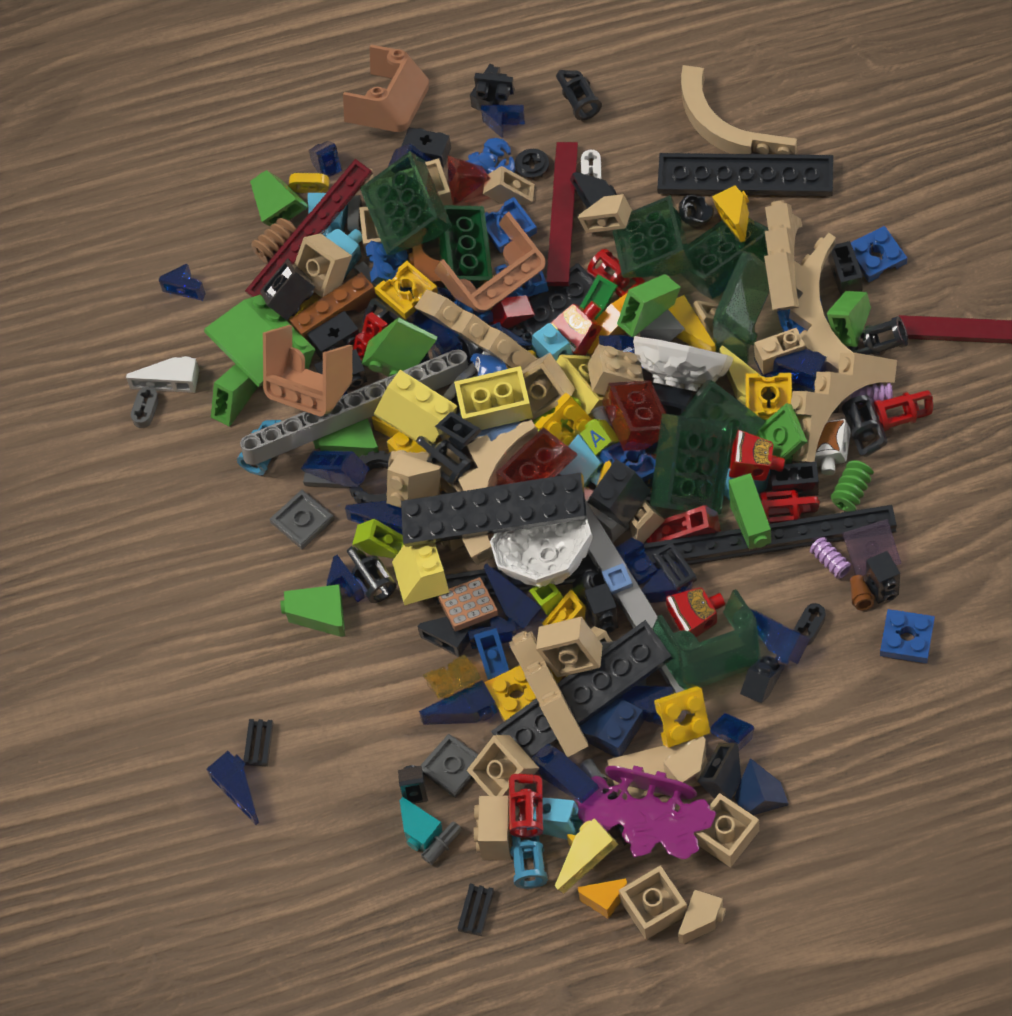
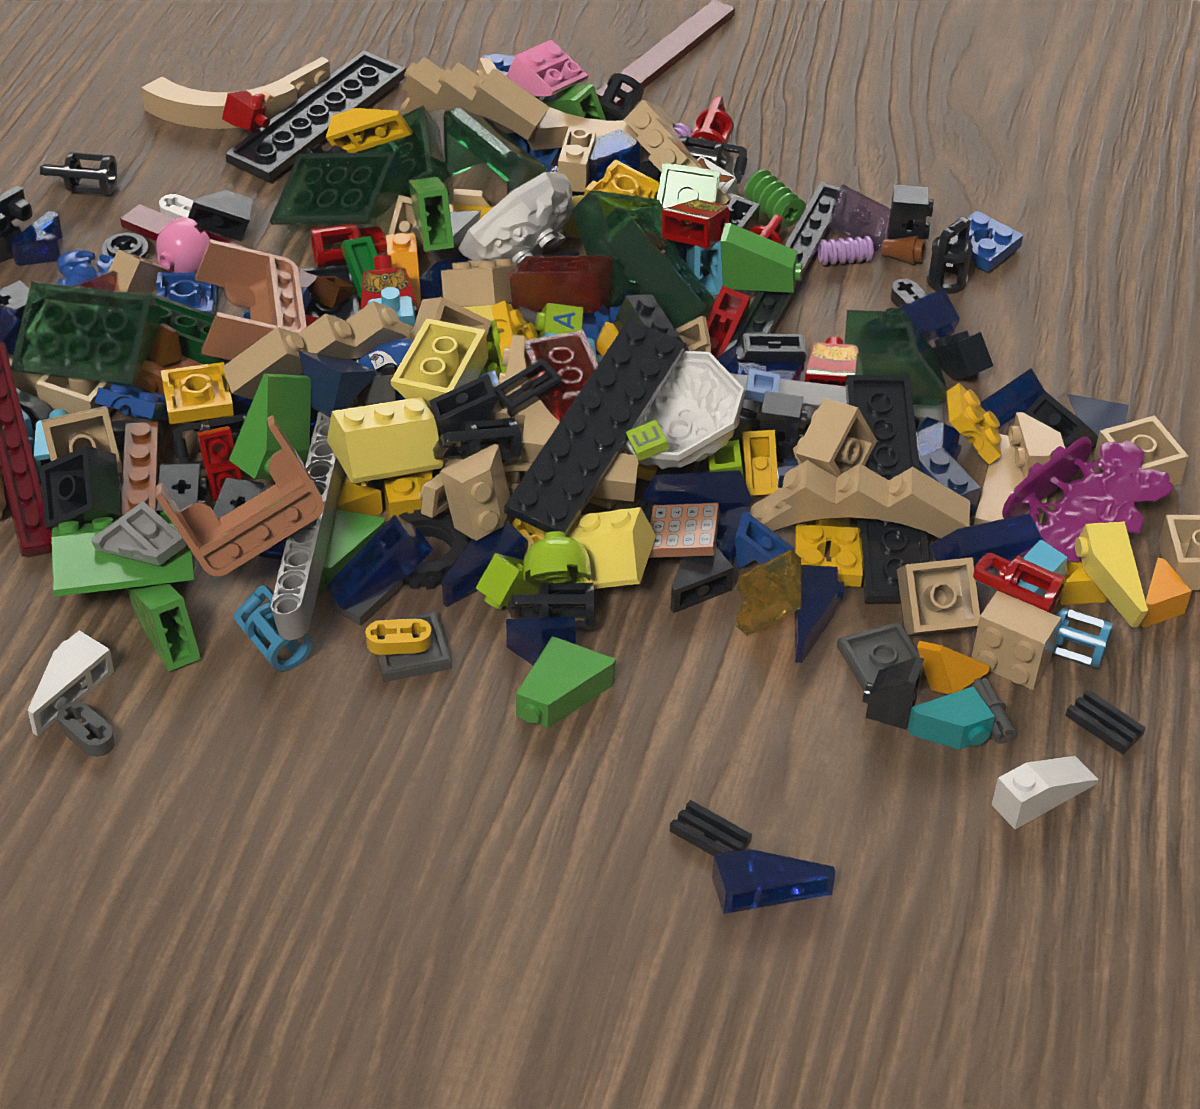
camera: 70 degrees left, 15 degrees down
(254, 340) = (140, 536): none -> light grey wing
(291, 512) = (398, 636): none -> yellow beam
(387, 552) = (556, 561): none -> lime cylinder
(396, 896) = (1039, 788): none -> white slope
(434, 249) = (166, 346): none -> reddish brown slope
(447, 352) = (334, 380): none -> dark blue slope
(455, 803) = (948, 669): none -> light orange slope
(491, 462) = (531, 390): none -> black tile
(497, 542) = (647, 440): none -> lime tile
(536, 196) = (181, 246): none -> bright pink cylinder
(566, 295) = (331, 290): none -> reddish brown slope
(606, 214) = (267, 210): tan slope -> none
(697, 136) = (247, 110): none -> red piece
(854, 278) = (545, 70): none -> bright pink slope
(854, 621) = (952, 255): none -> black piece

